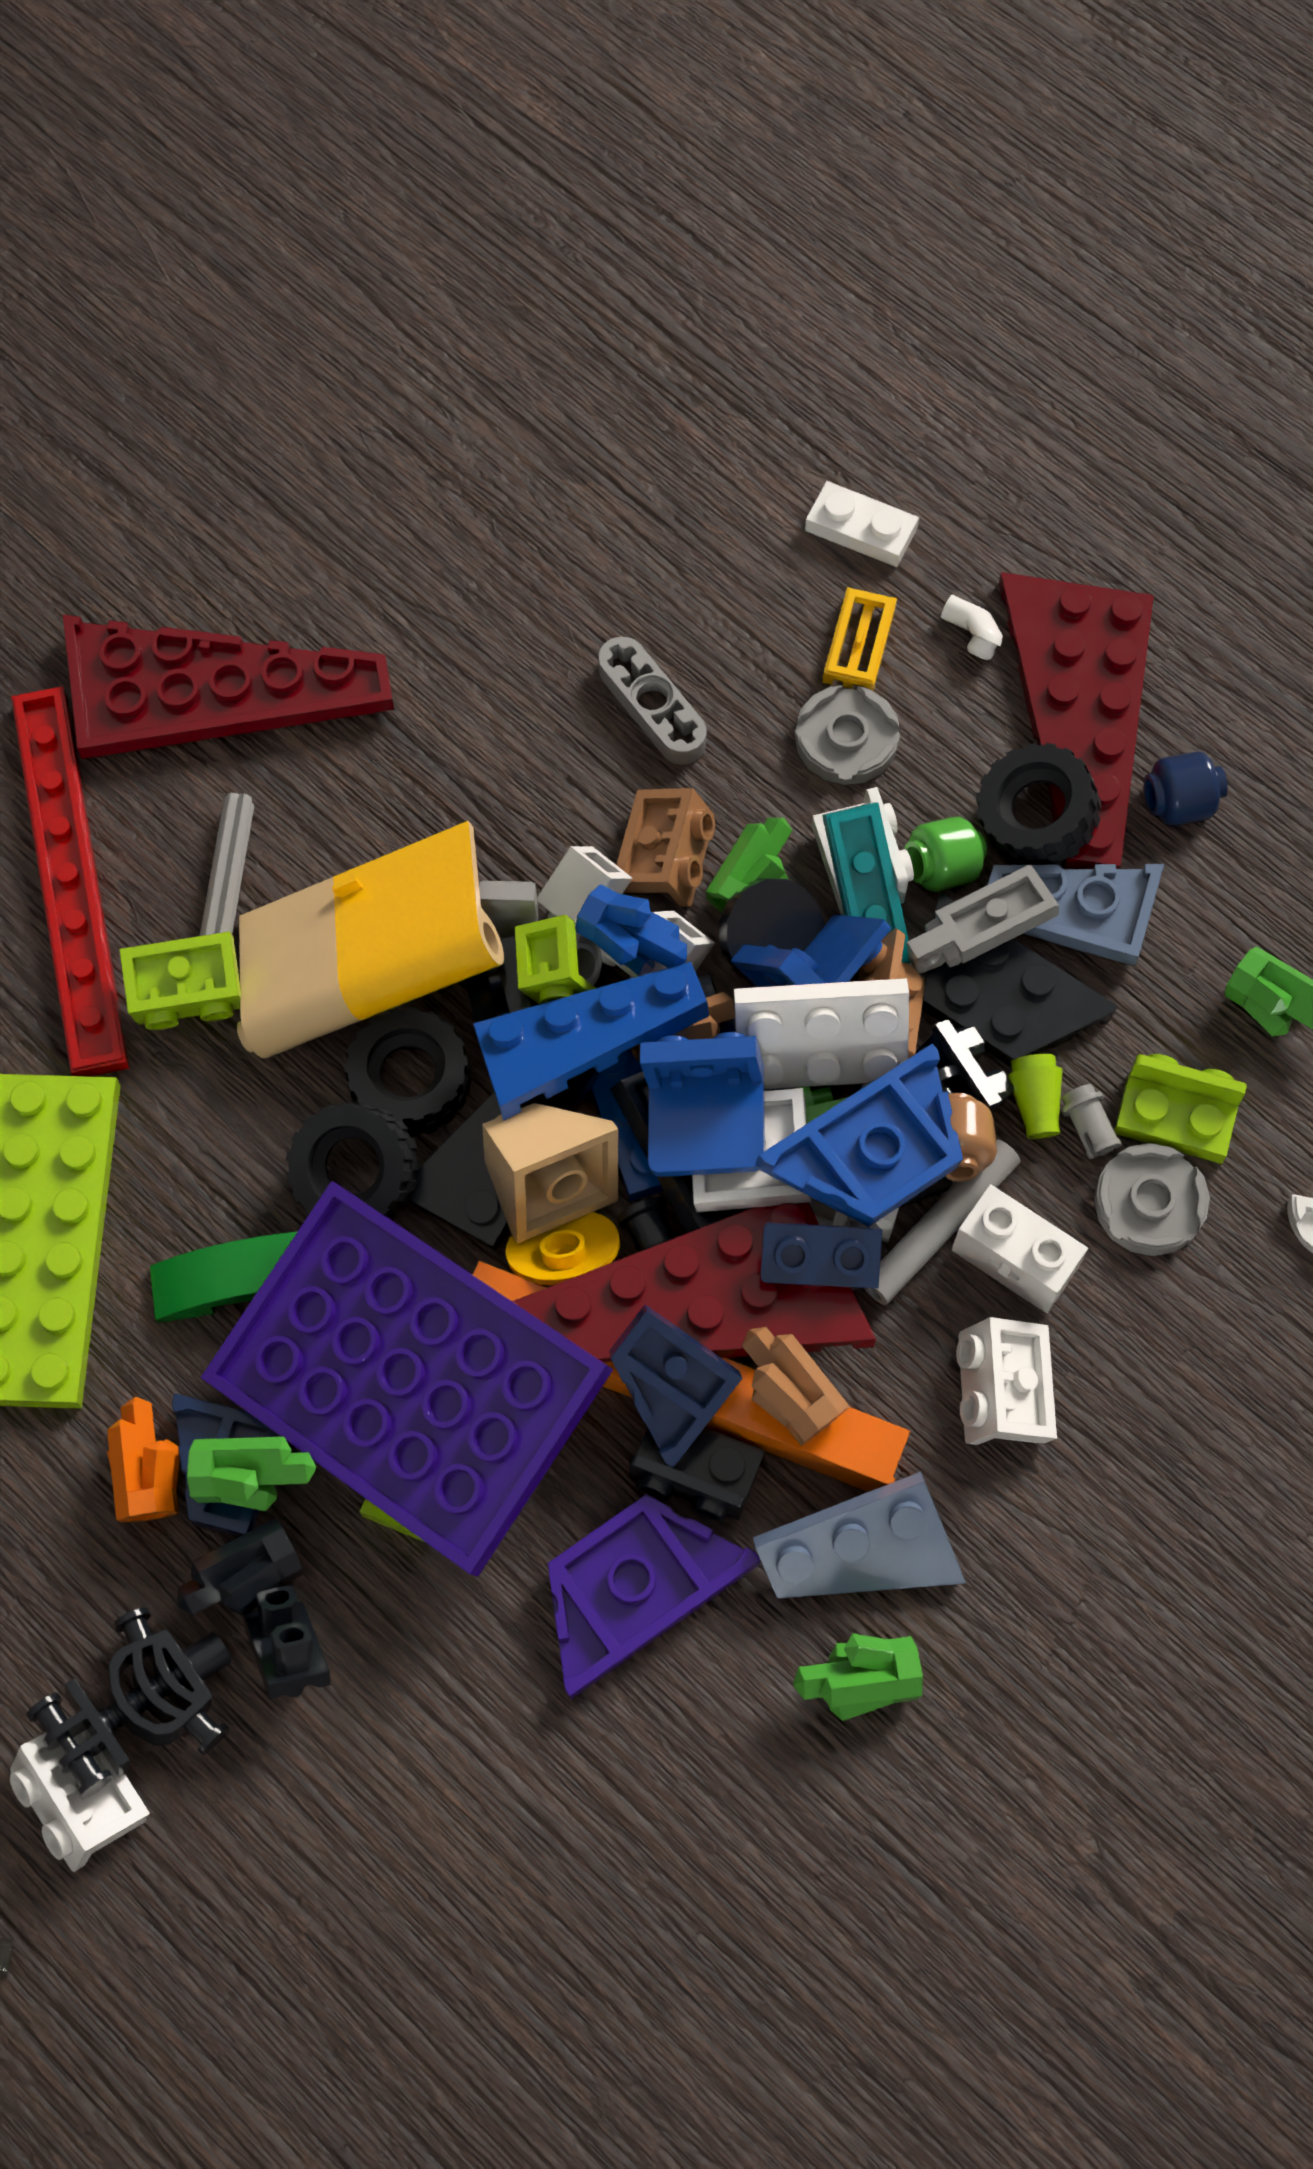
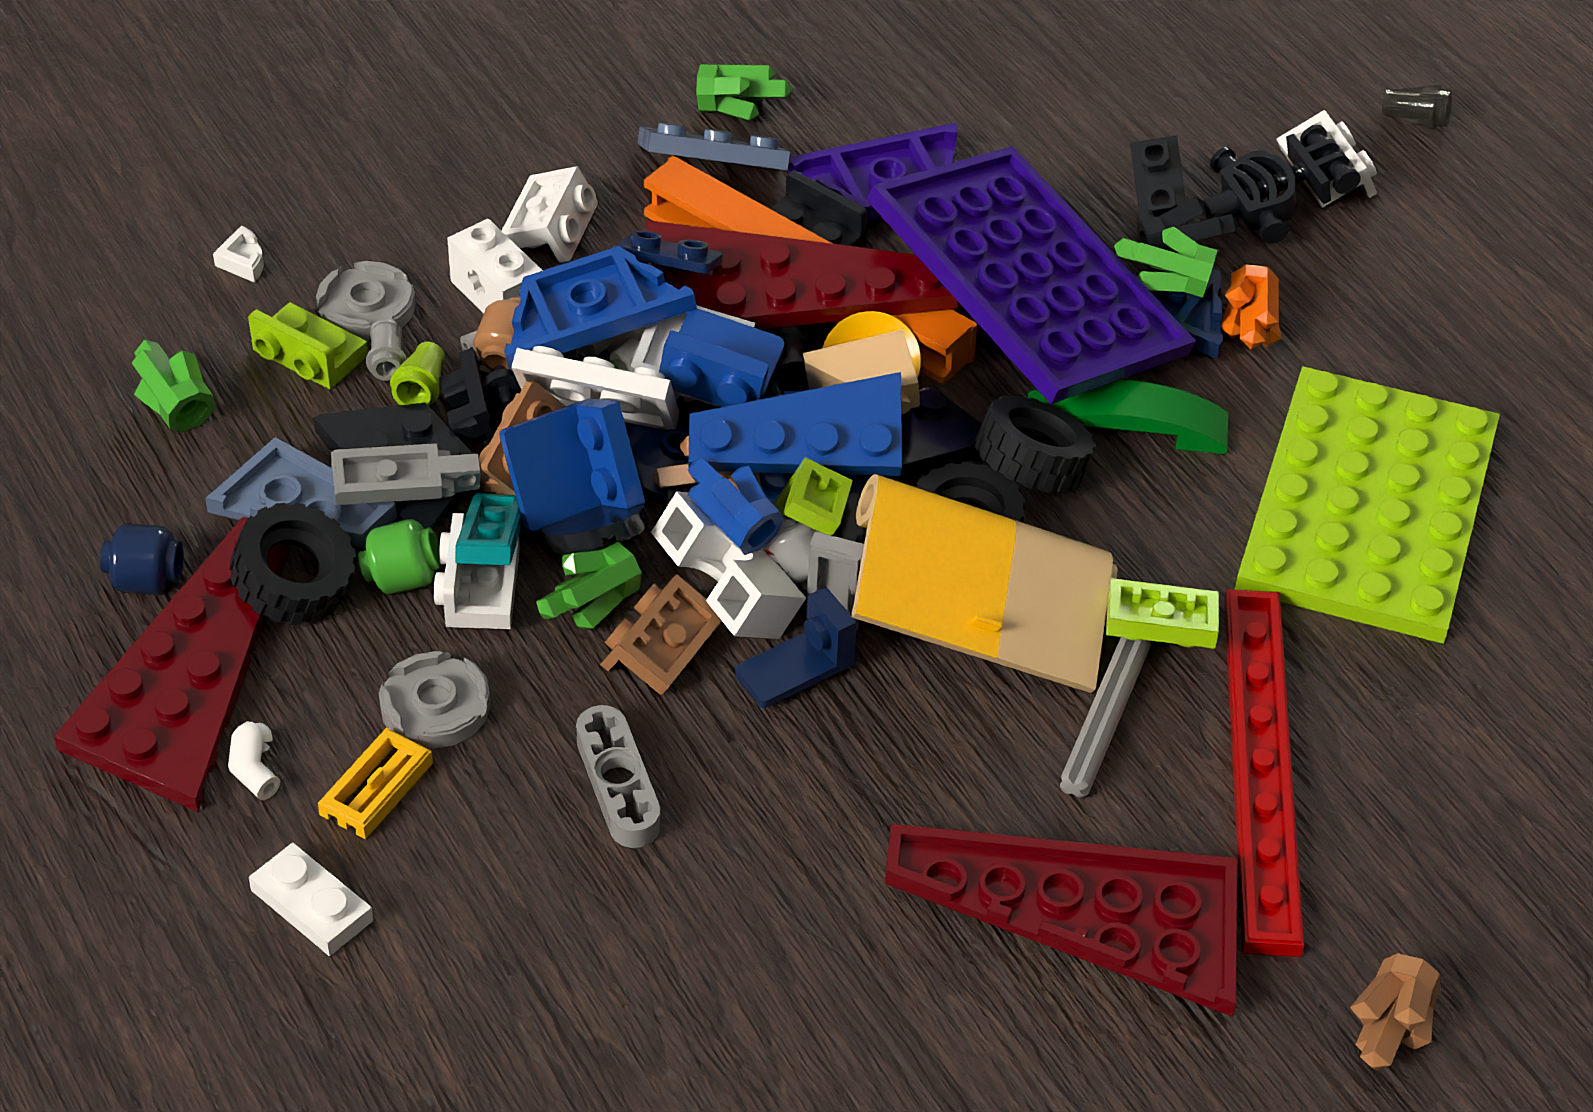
camera: 165 degrees left, 20 degrees down
(531, 850) = (805, 659): none -> dark blue bracket
(671, 1380) = (818, 219): dark blue wing -> none
(791, 1384) = (723, 192): medium nougat rock -> none

